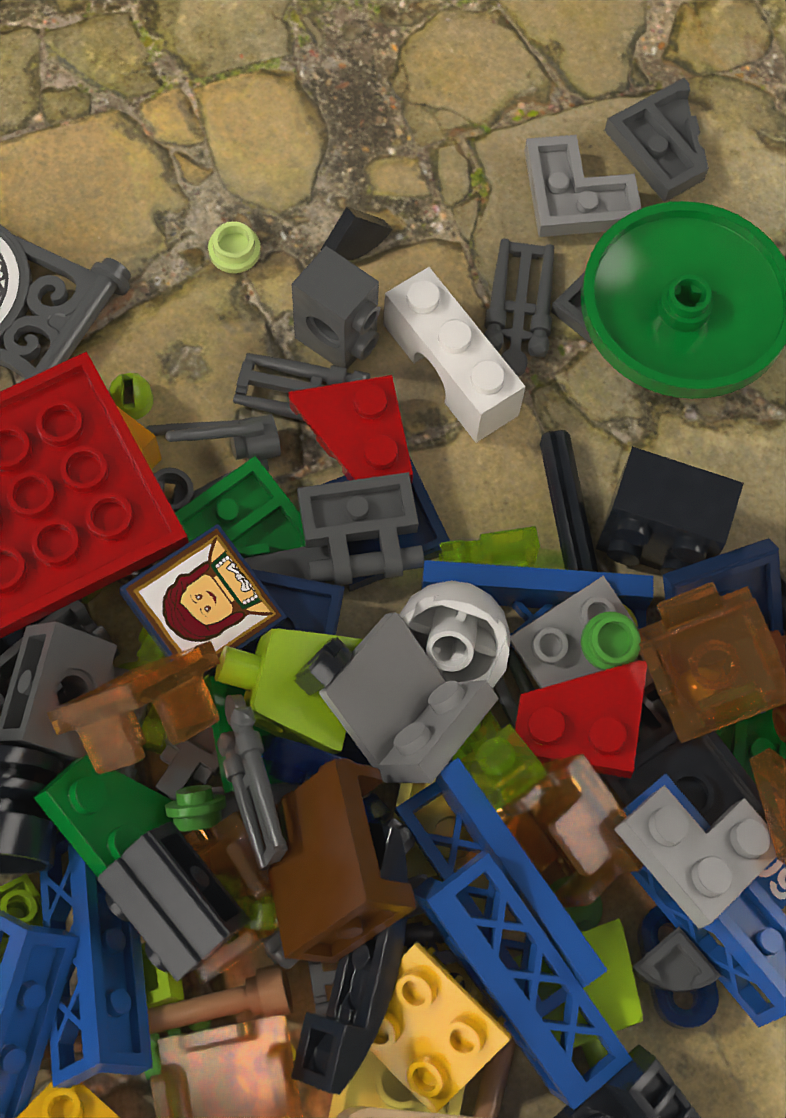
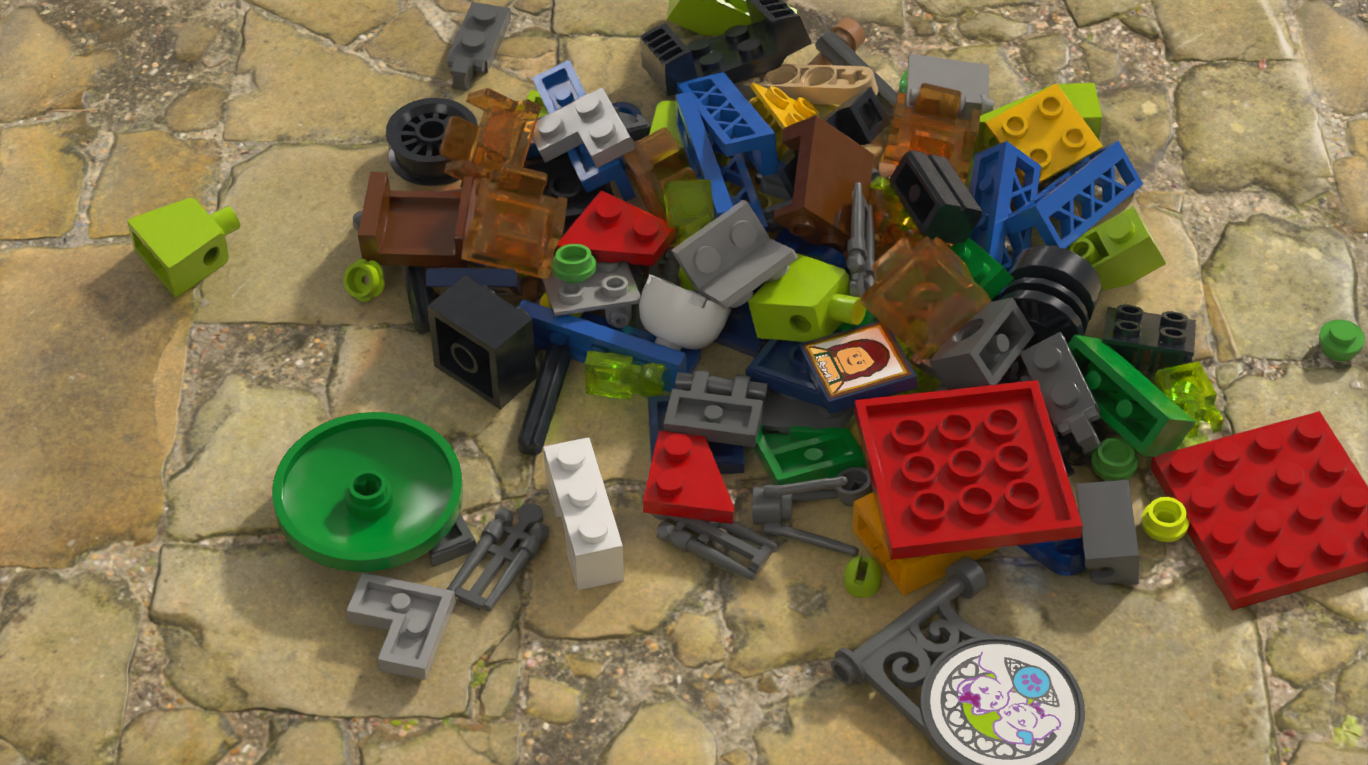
camera: 155 degrees left, 20 degrees down
(234, 247) = (729, 665): yellowish green plate -> none
(323, 666) = (787, 272): tile -> none
(336, 309) = (668, 553): dark grey brick -> none
(357, 234) = (617, 636): black tile -> none
(662, 140) = (297, 645): dark grey wing -> none

